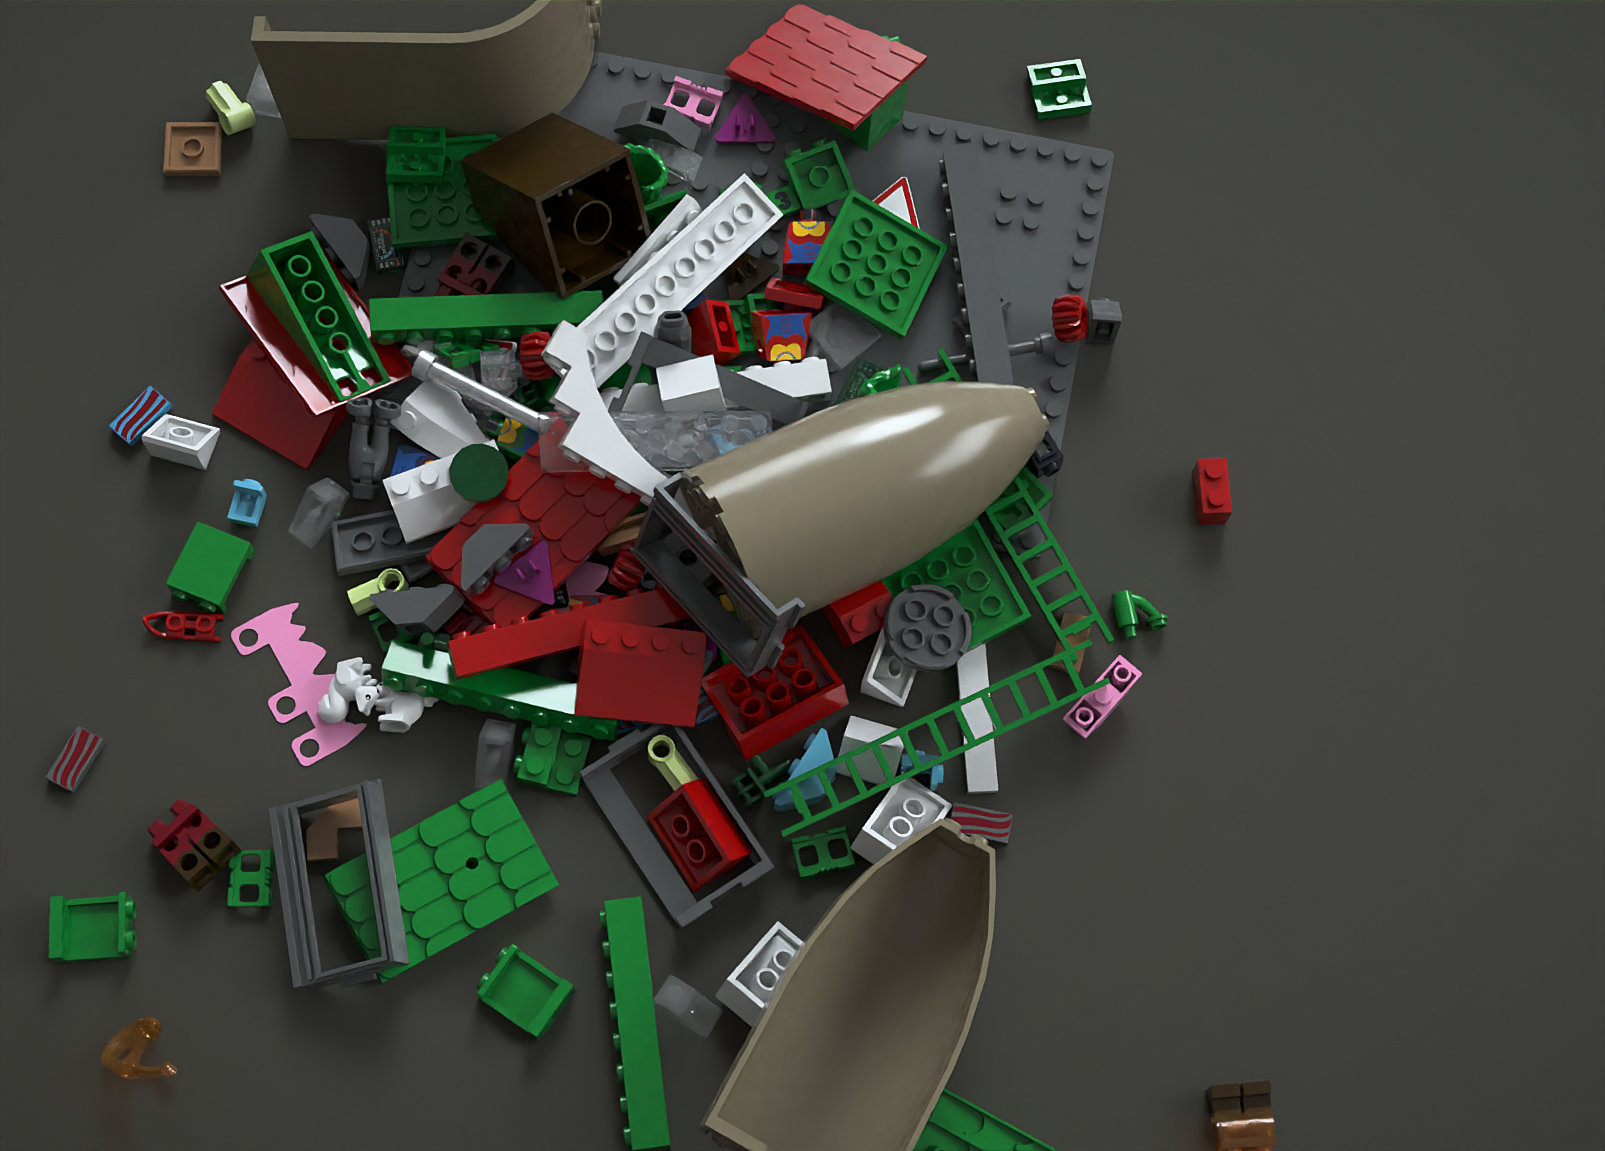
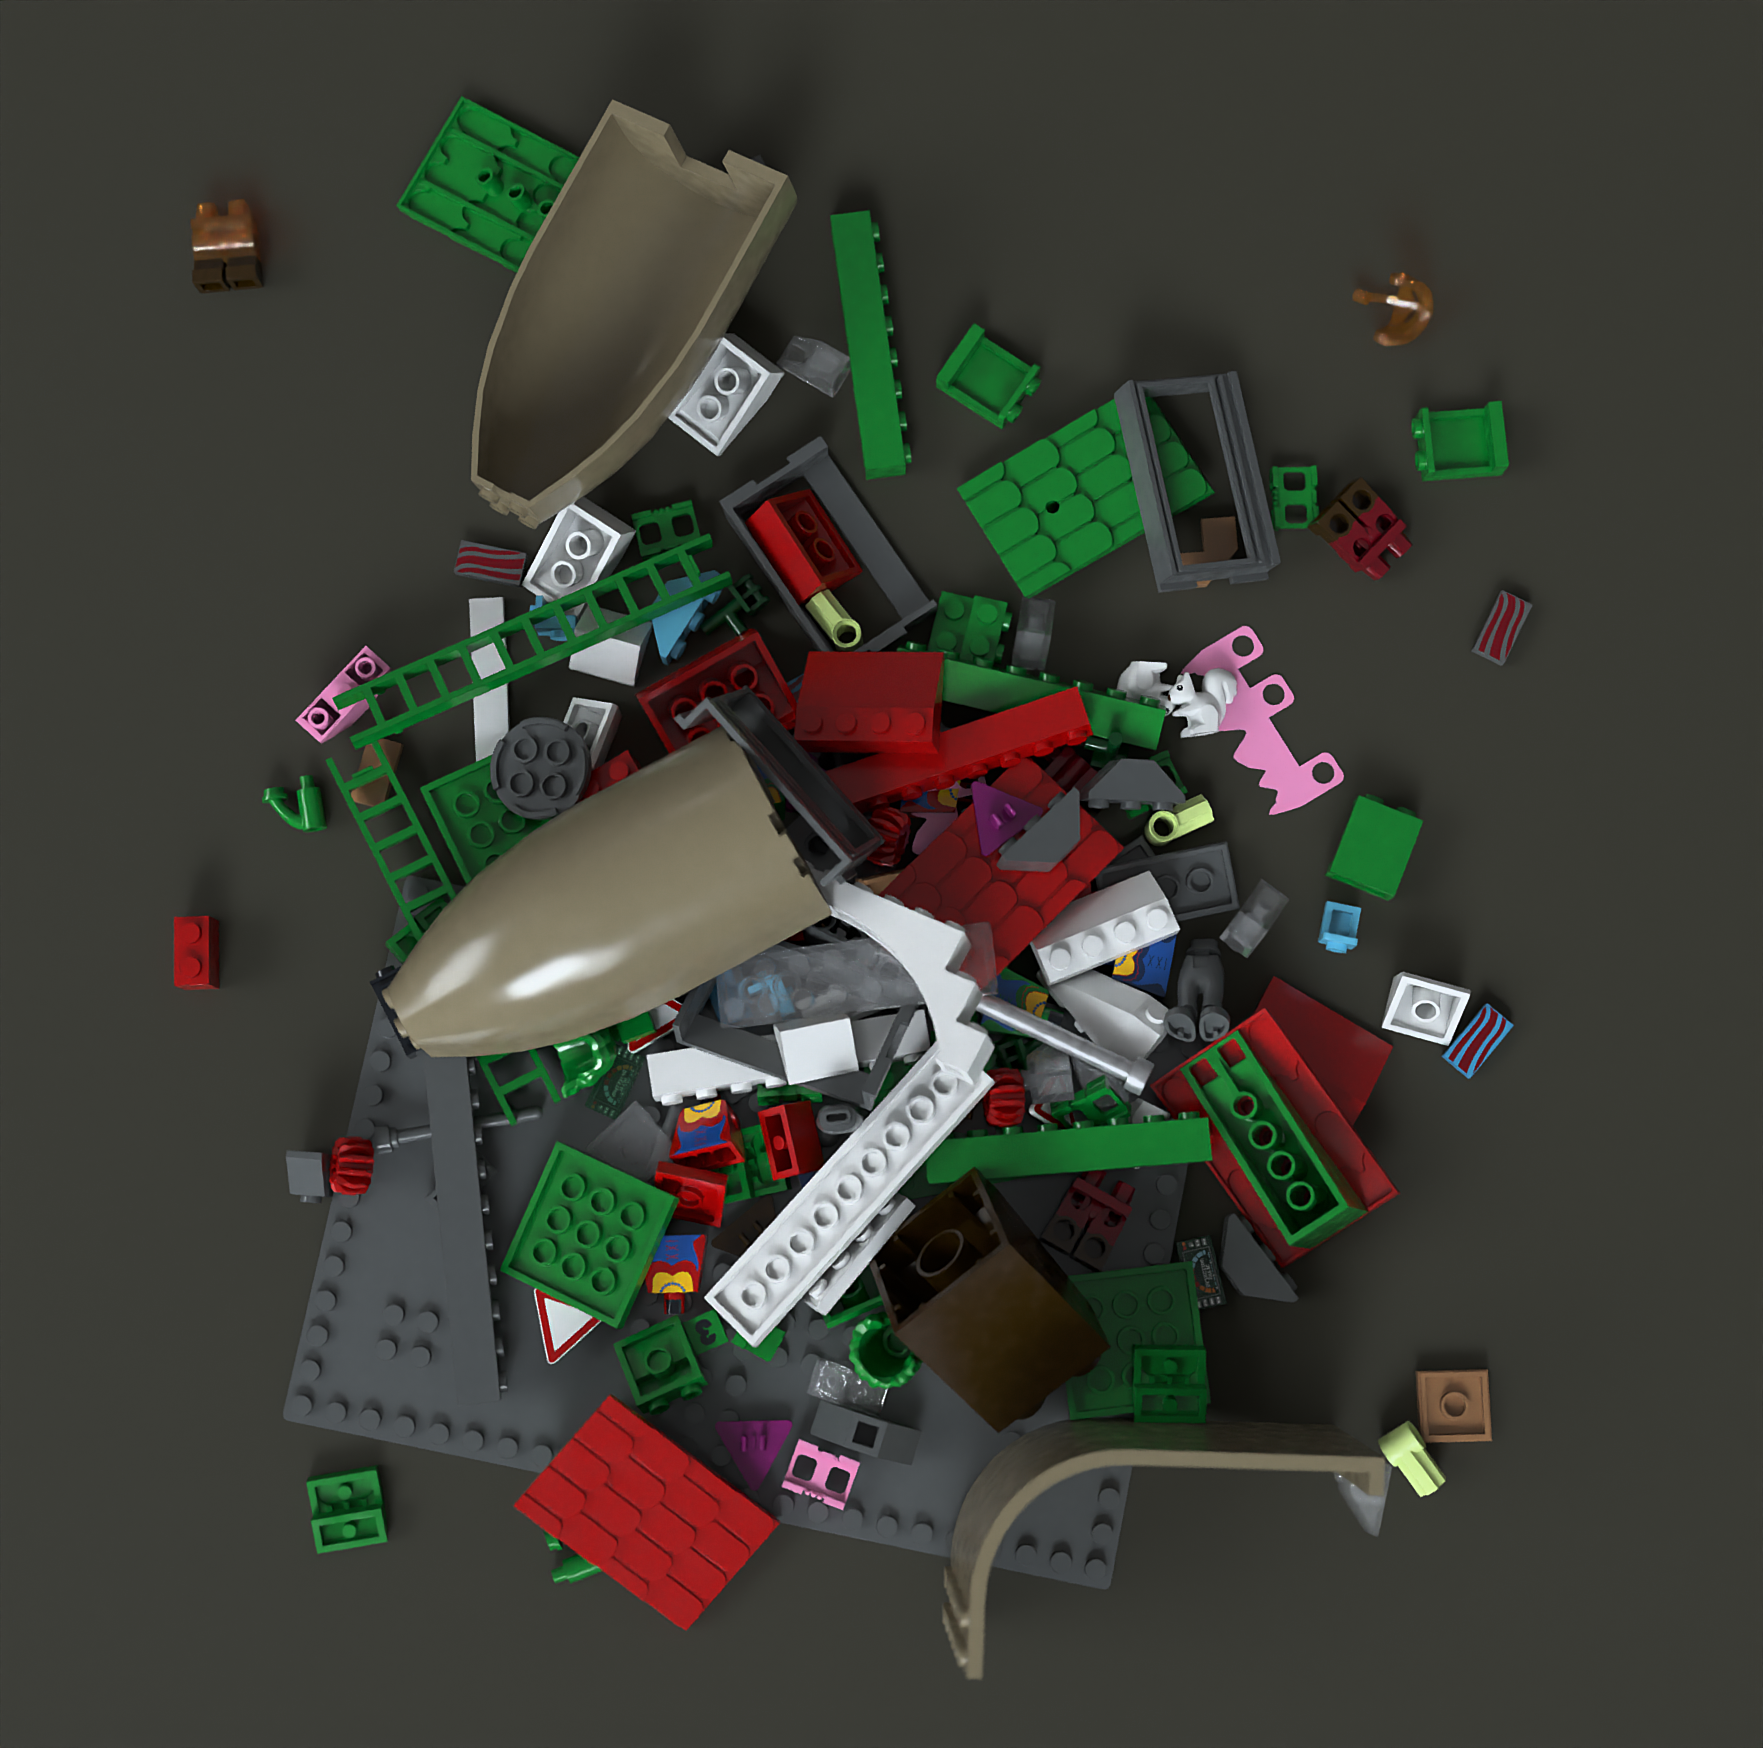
camera: 175 degrees left, 10 degrees up
(177, 623) = (1405, 783): red piece -> none
(479, 473) = (1065, 932): dark green tile -> none

